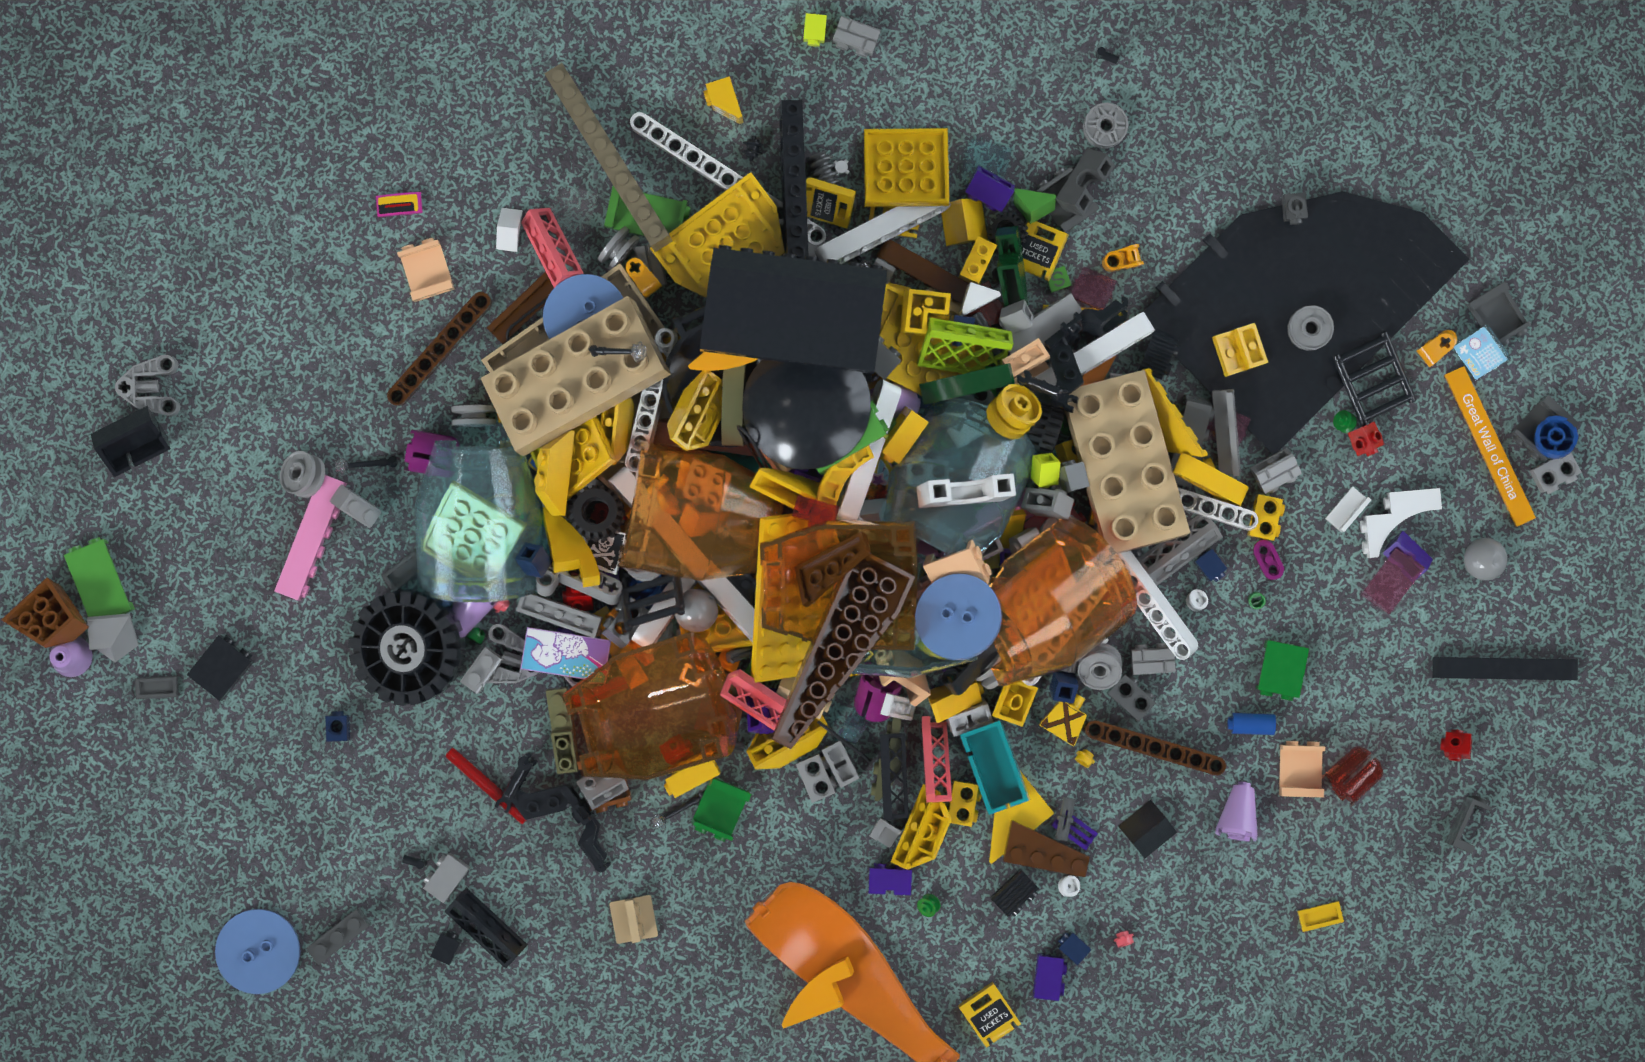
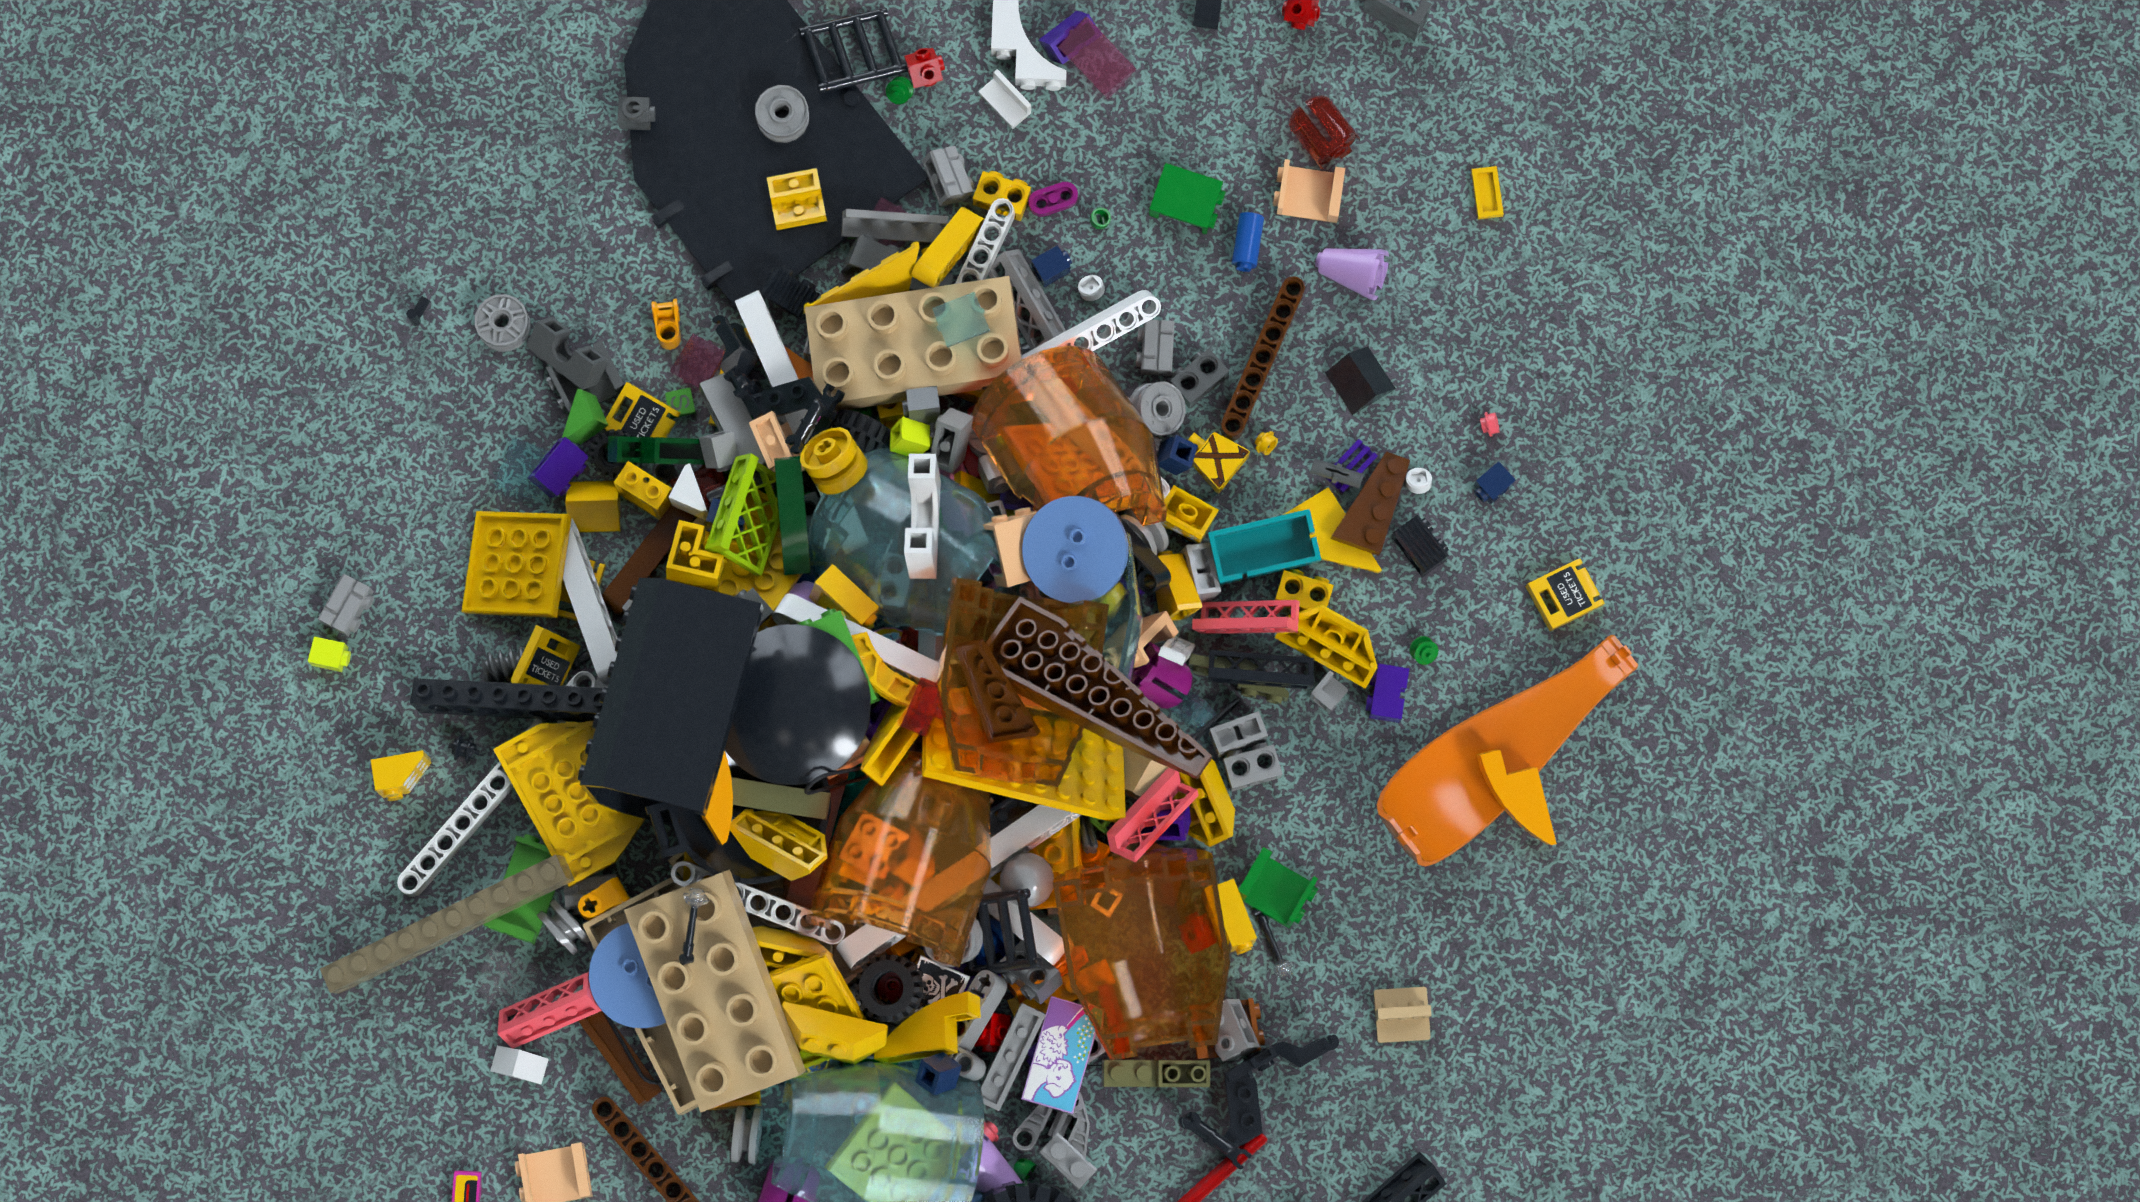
camera: 85 degrees left, 10 degrees down
(841, 166) = (503, 644): white piece -> none
(1049, 977) = (1527, 517): dark purple brick -> none
(1145, 498) = (960, 319): none -> clear light blue piece

